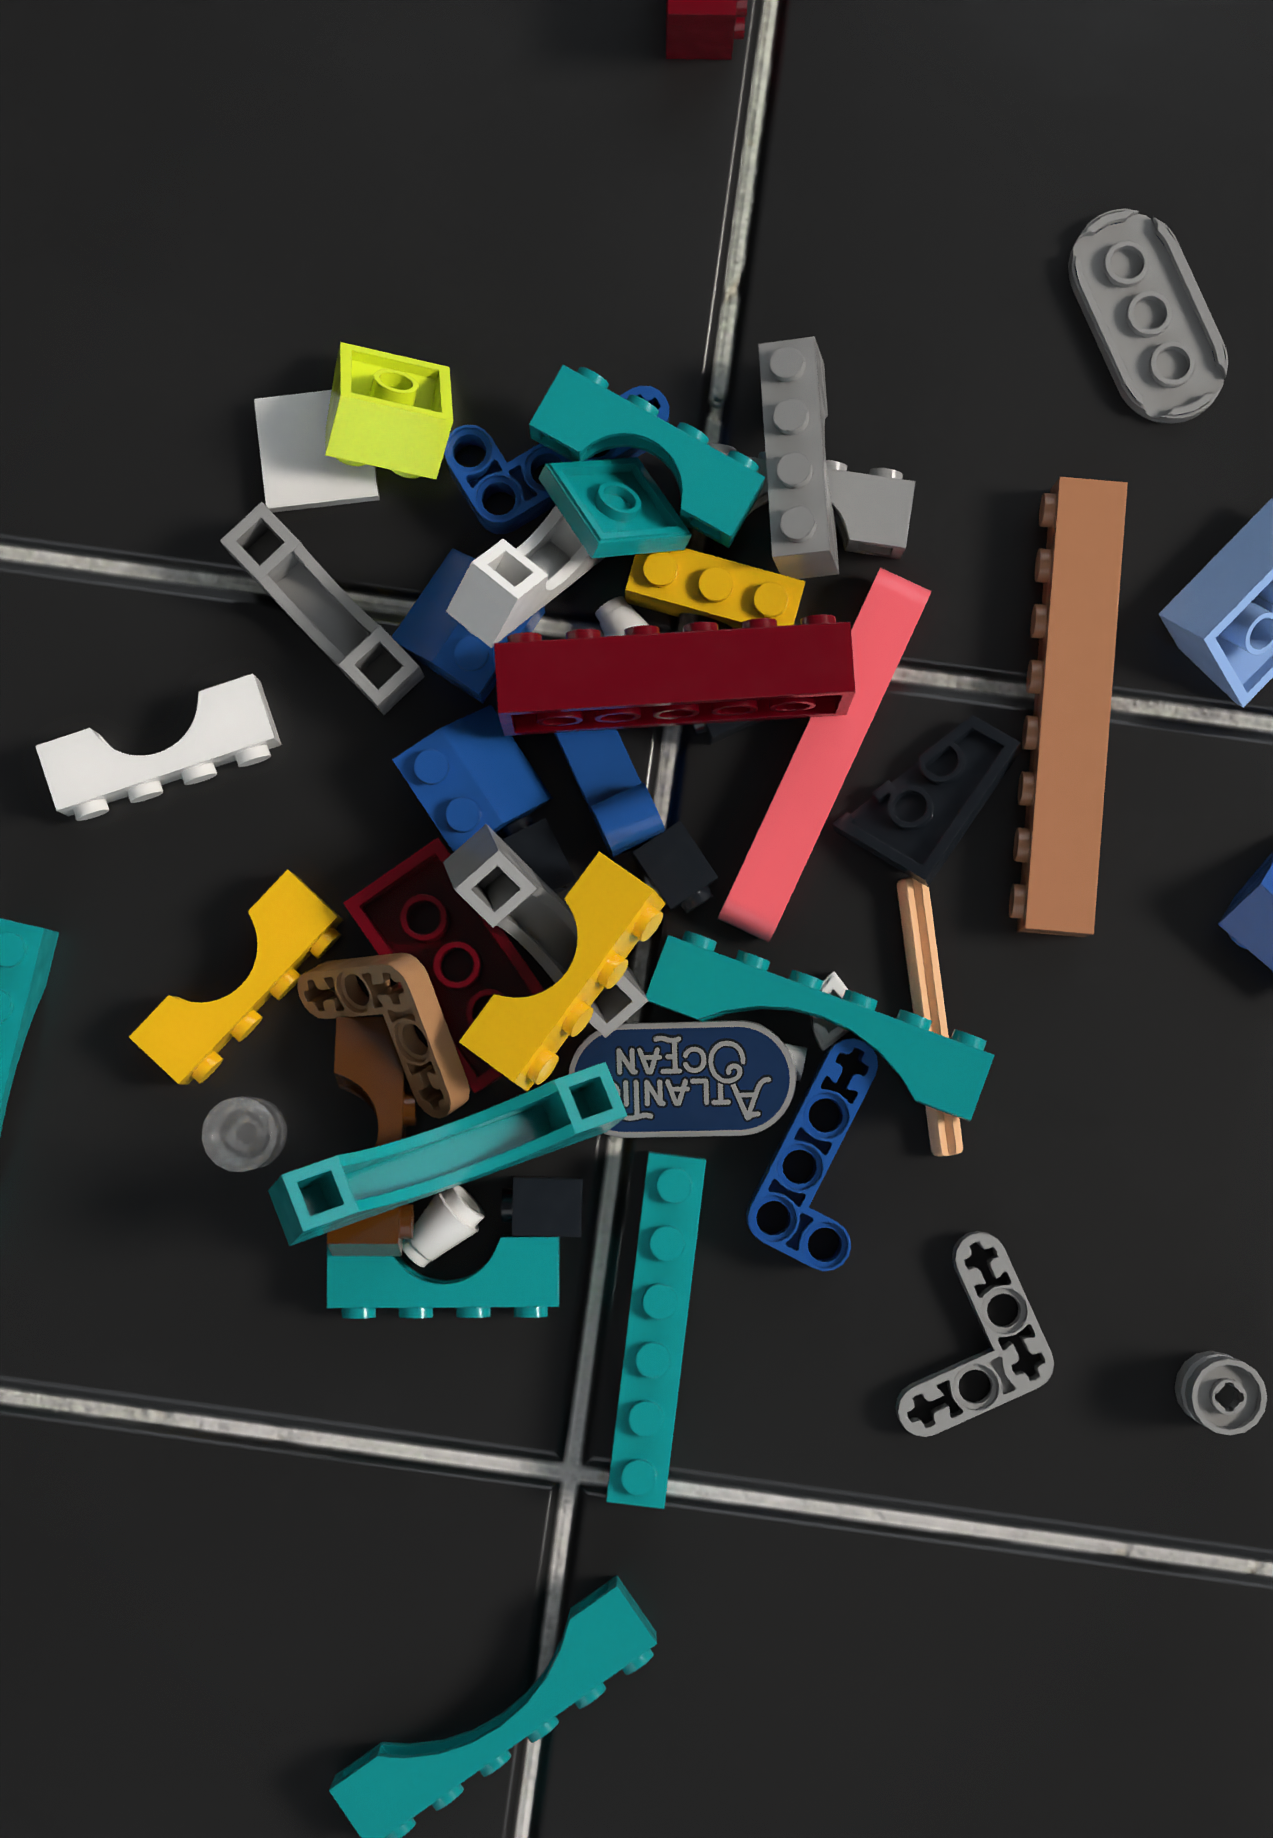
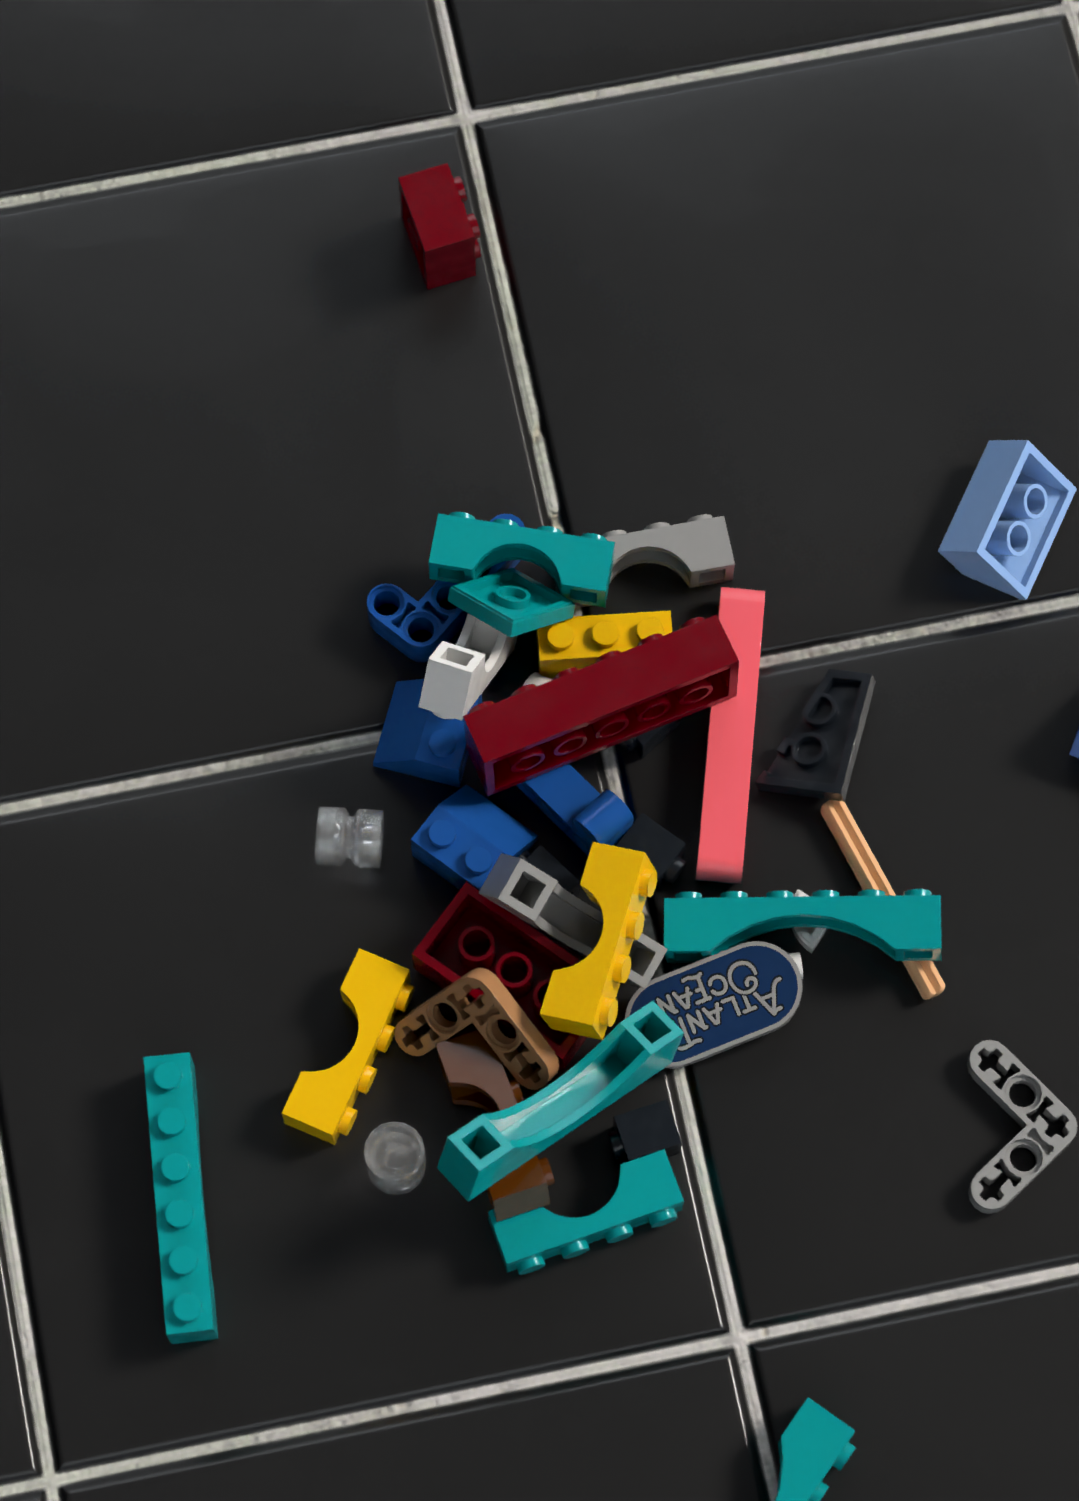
camera: 15 degrees left, 15 degrees down
(228, 727) = (184, 931): white arch -> none
(295, 460) = (269, 645): white tile -> none
(322, 608) = (284, 739): light grey arch -> none
(331, 727) = (349, 836): none -> clear wheel
(389, 412) = (316, 597): neon yellow slope -> none
(443, 1224) = (573, 1176): white cone -> none
(656, 1330) = (765, 1195): teal arch -> none
(796, 458) = (632, 528): light grey arch -> none
(822, 1148) = (836, 1019): blue beam -> none
(1070, 707) = (900, 642): nougat brick -> none
(1148, 316) = (848, 351): light grey tile -> none

